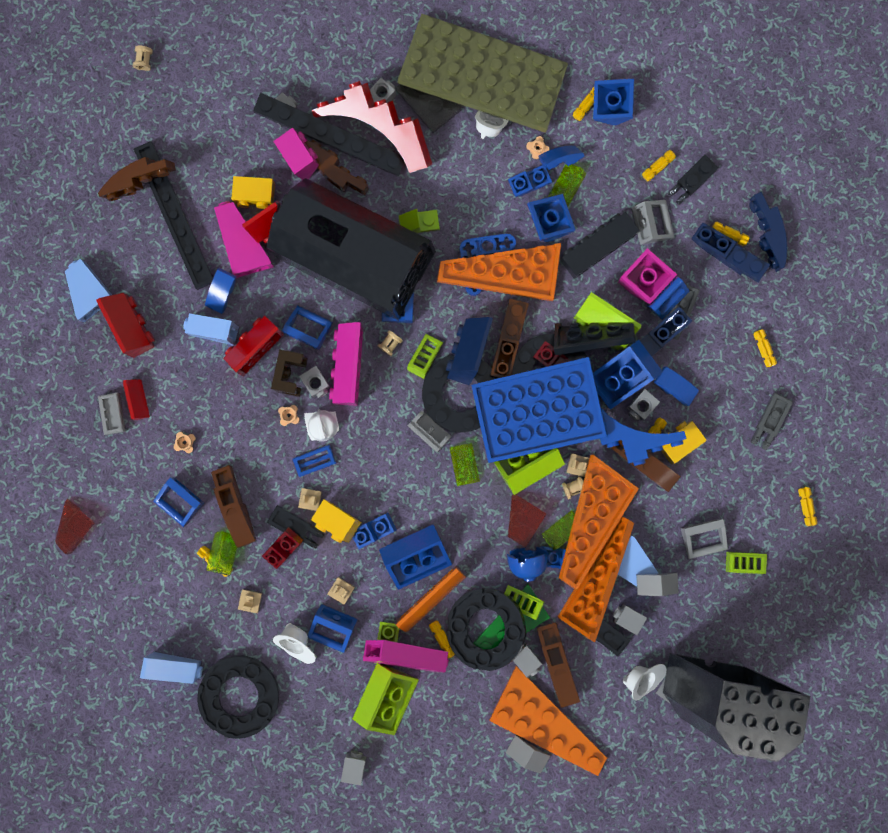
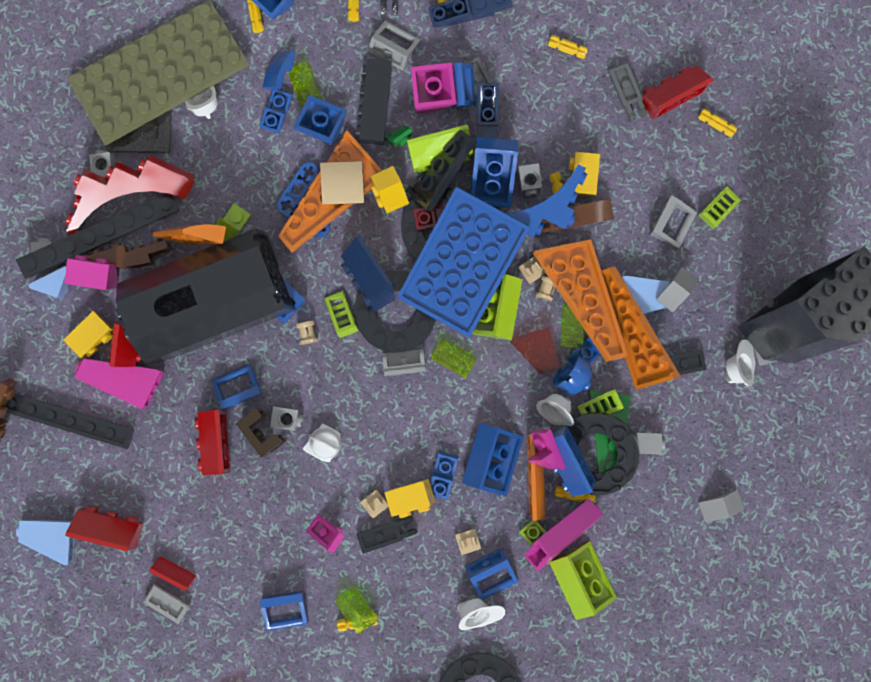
camera: 50 degrees left, 0 degrees up
(180, 437) = (235, 564): light nougat plate -> none
(211, 328) = (169, 464): light blue slope -> none
(220, 289) = (145, 430): blue slope -> none
(232, 507) = (327, 570): reddish brown slope -> none
(250, 601) = (413, 621): tan tile -> none
(258, 483) = (325, 533): none -> dark pink slope
(265, 133) = (51, 284): none -> light blue slope
(282, 548) = (394, 558): dark red slope -> none
(283, 411) = (287, 464): light nougat plate -> none
(330, 455) = (341, 490): blue tile -> none
(347, 364) = (293, 380): dark pink slope -> none
(353, 768) = (615, 652): light grey brick -> none
(388, 201) = (193, 235): none -> orange slope
(454, 592) = (548, 452): none -> dark pink slope
(461, 614) = (577, 475): none -> blue slope
(491, 571) = (556, 410): none -> white piece
(509, 338) = (386, 236): reddish brown slope -> none
(519, 272) = (342, 182): none -> tan slope
(532, 147) = (250, 82): light nougat plate -> none
(536, 718) = (699, 475): orange wing -> none
(543, 311) = (388, 190): none -> yellow brick
(558, 665) = (673, 421): reddish brown slope -> none
(590, 284) = (400, 136): none -> green slope
(629, 619) = (685, 335): light grey brick -> none
(676, 385) = (537, 139): blue slope -> none
(803, 455) = (675, 91): none -> red slope

